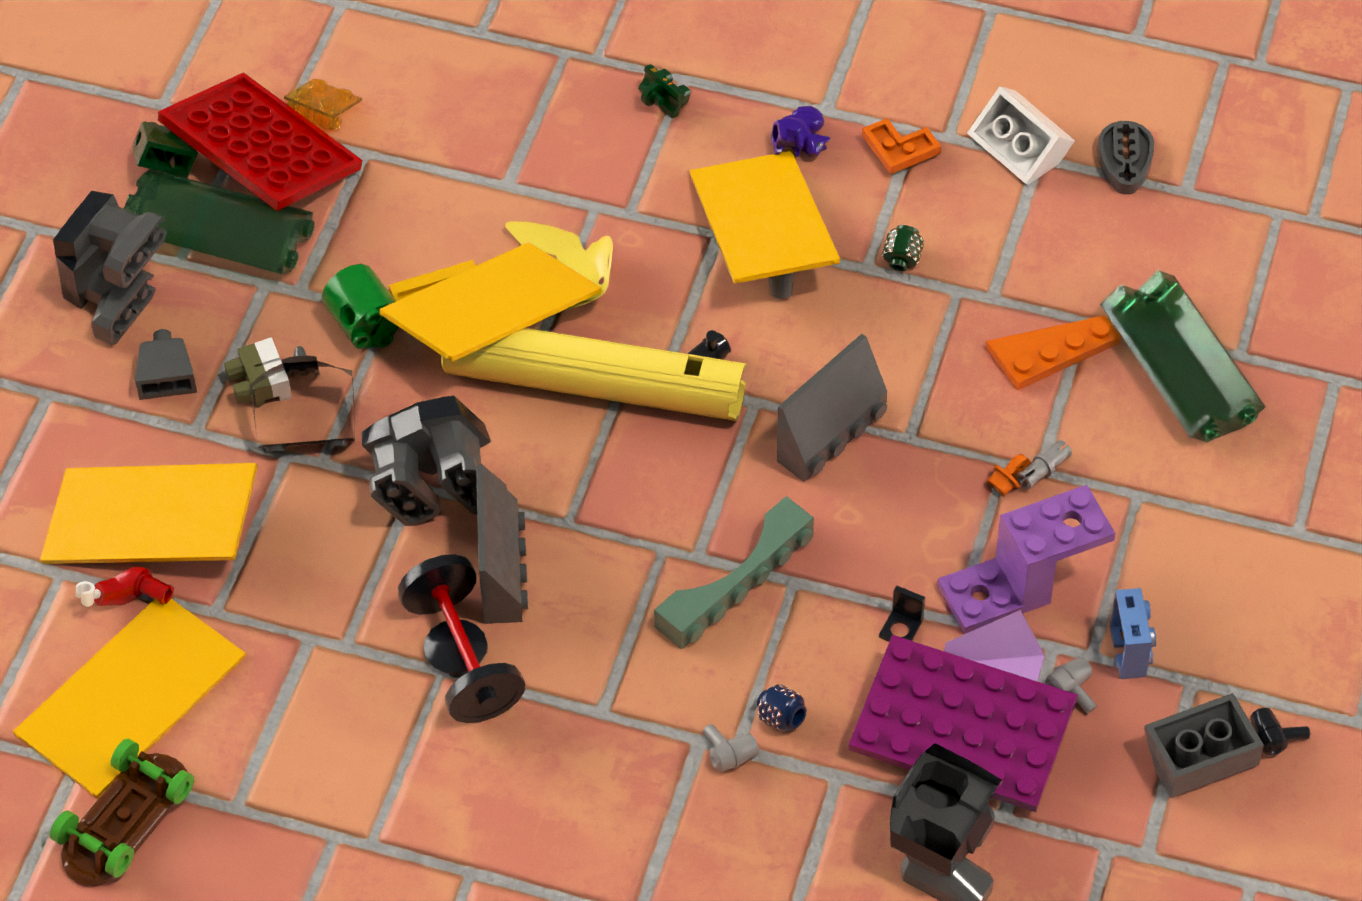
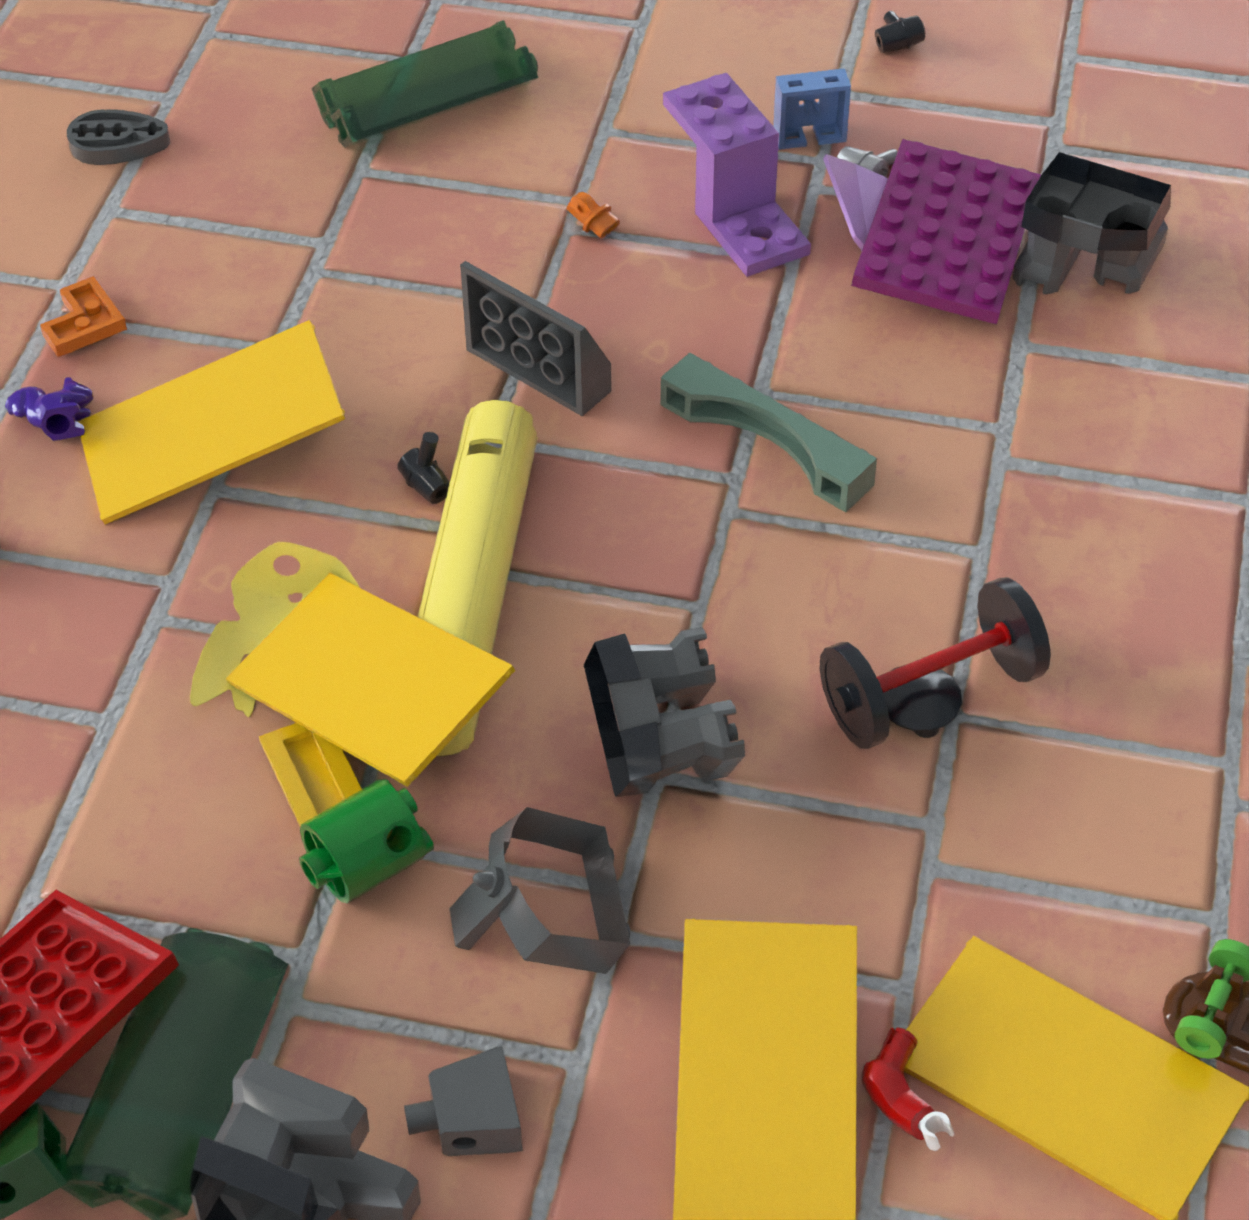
camera: 95 degrees left, 5 degrees down
(252, 363) = (479, 973): olive hips -> none
(500, 551) = (782, 640): dark grey slope -> none
(732, 752) = (1019, 421): light grey piece -> none
(781, 708) = (955, 378): dark blue head -> none
(903, 247) = (257, 305): dark green head -> none
(906, 609) = (797, 292): black bracket -> none
(1020, 135) = (81, 212): white slope -> none
(1043, 464) = (572, 185): light grey pin -> none
(1048, 350) = (411, 197): orange wing -> none
(1203, 745) = (943, 61): dark grey slope -> none

